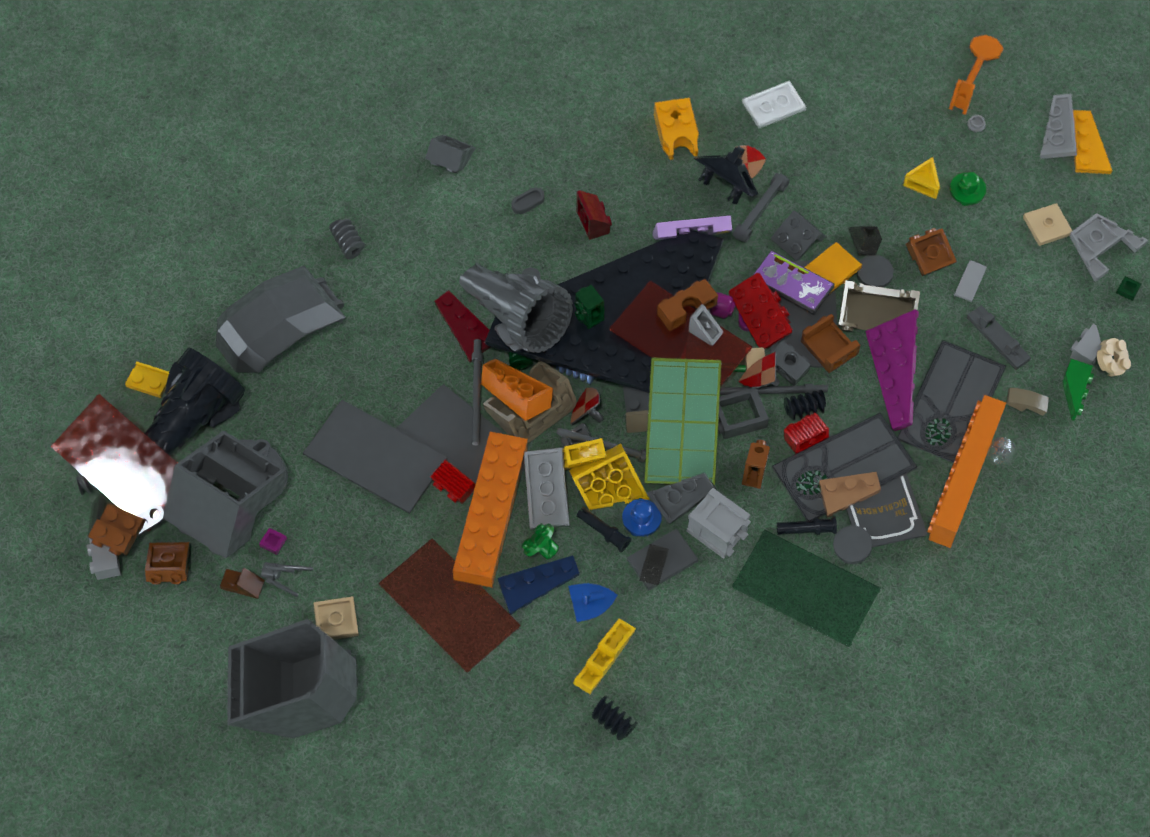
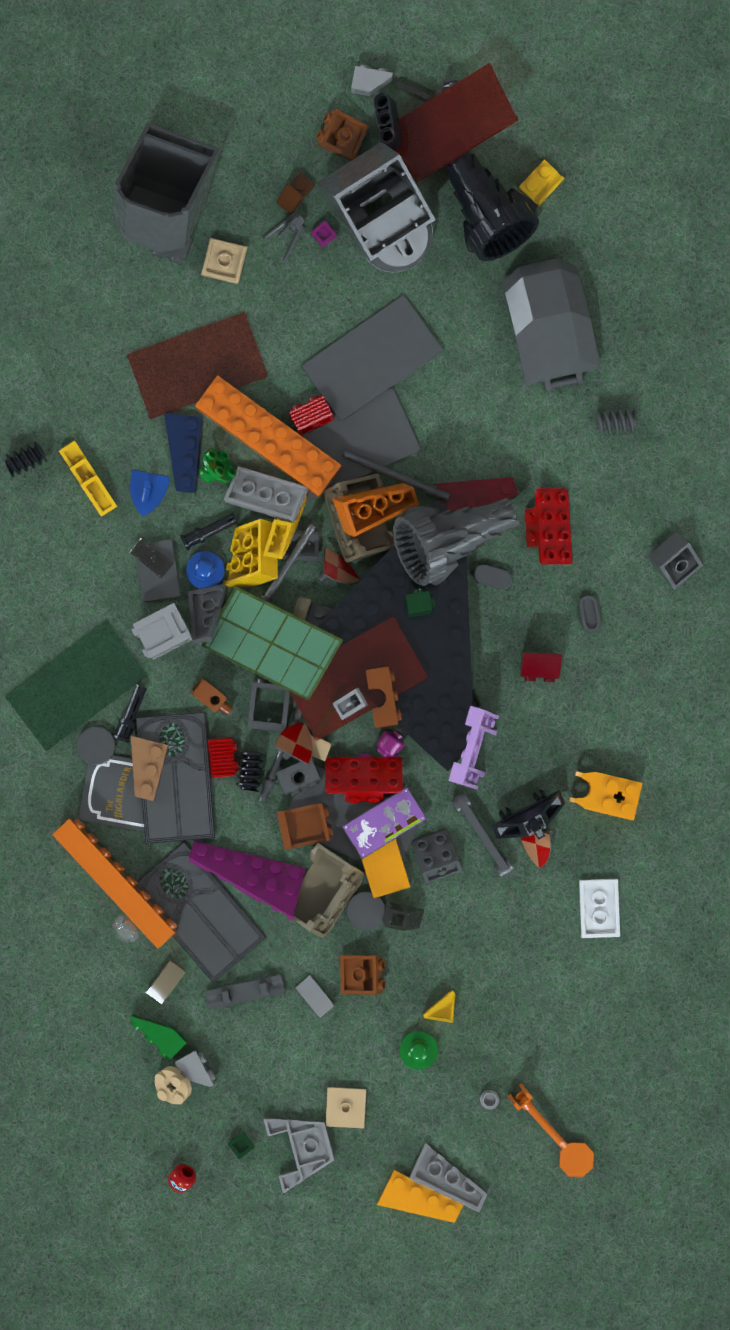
camera: 120 degrees right, 25 degrees up
(116, 530) = (383, 95): dark orange plate -> none
(465, 253) = (550, 526): none -> red bracket

